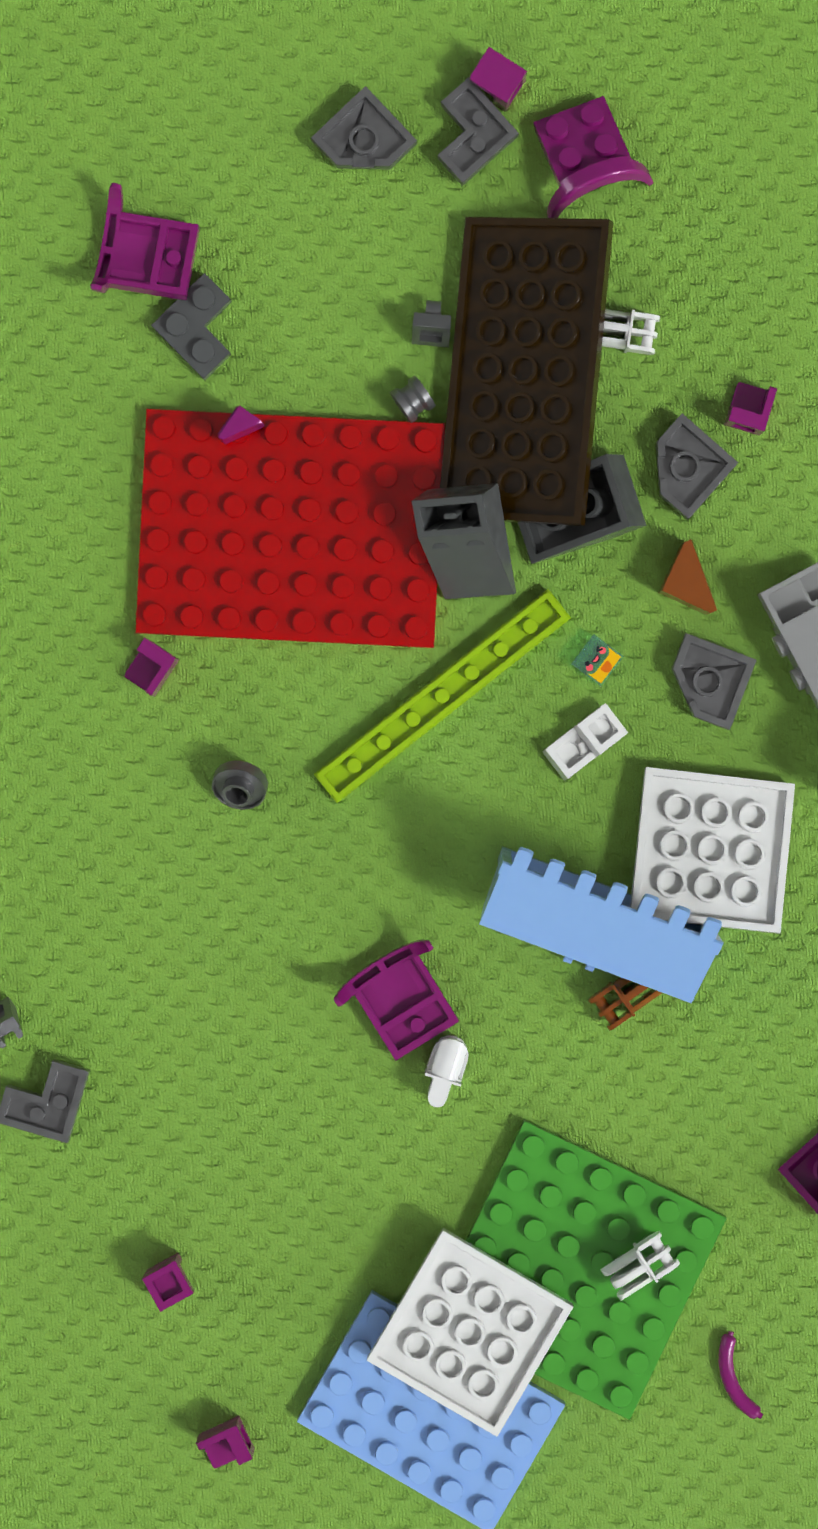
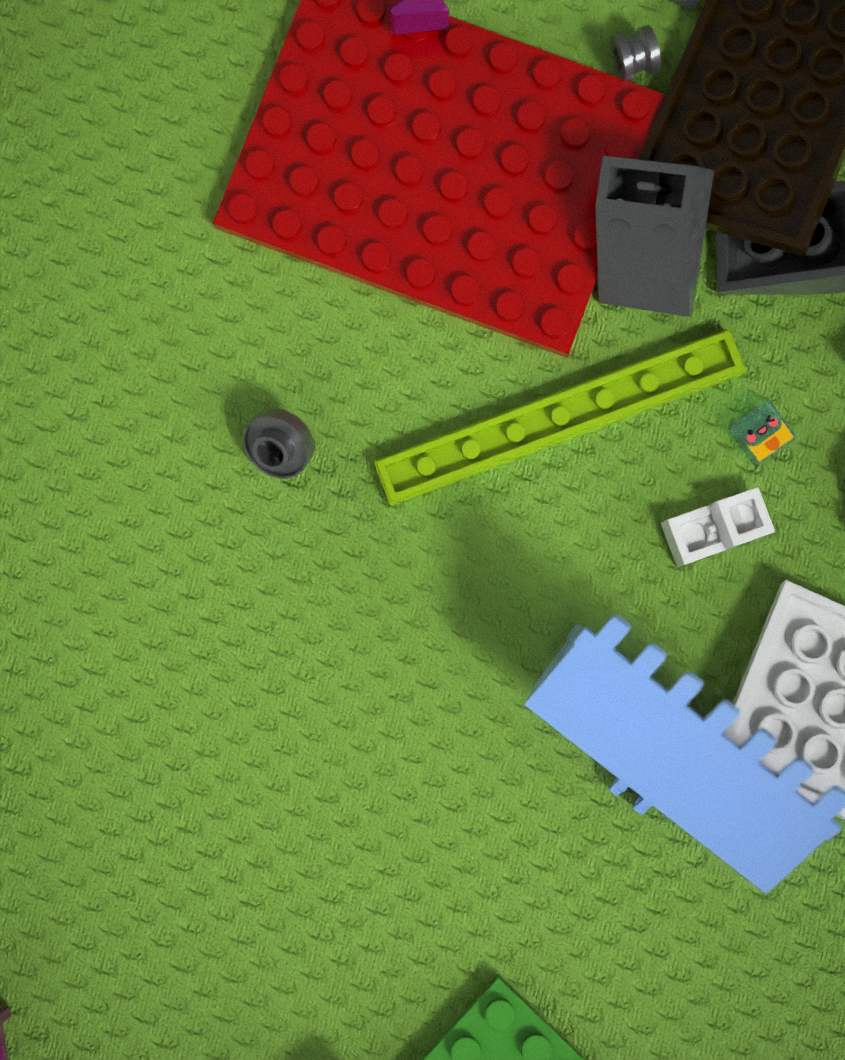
camera: 15 degrees right, 5 degrees down
(151, 667) = (219, 269): magenta panel -> none
(401, 998) = (392, 772): magenta piece -> none
(445, 1068) = (421, 878): white arm -> none
(624, 997) = (672, 860): dark orange arm -> none

